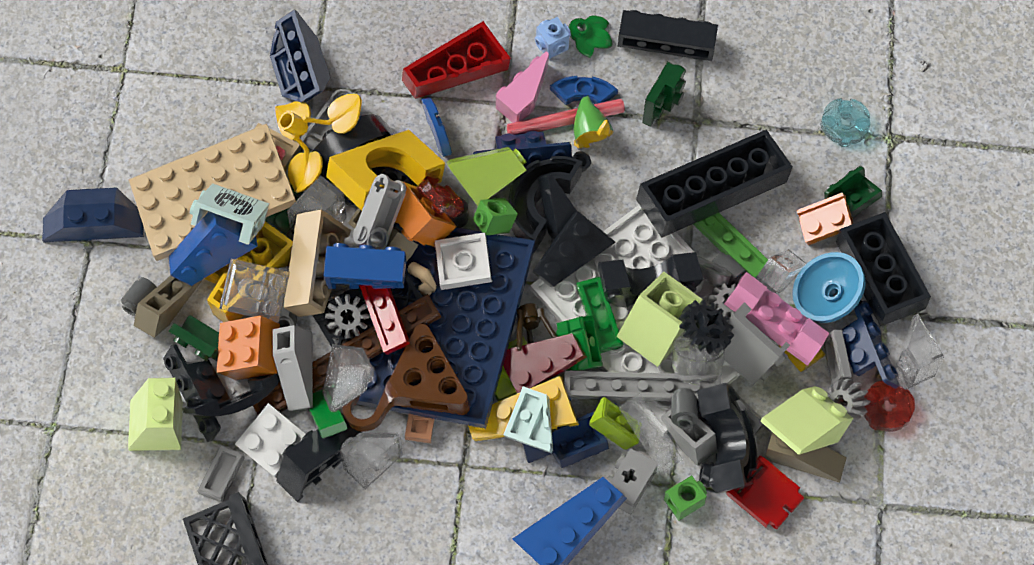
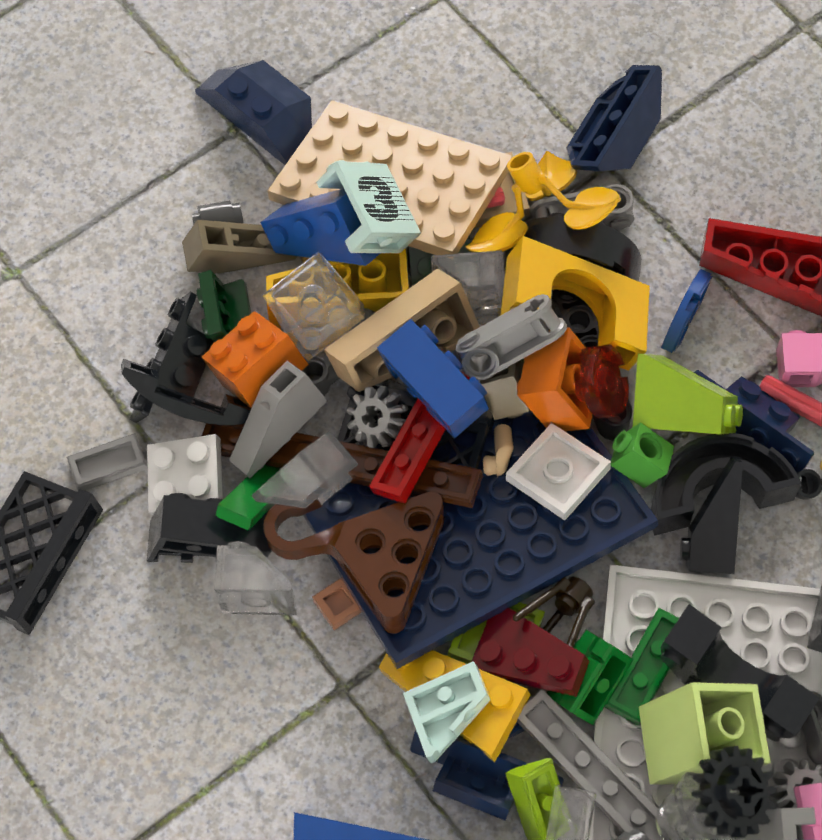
camera: 50 degrees right, 0 degrees up
(156, 416) = (98, 348): yellowish green slope -> none
(572, 249) = (690, 567): black wing -> none

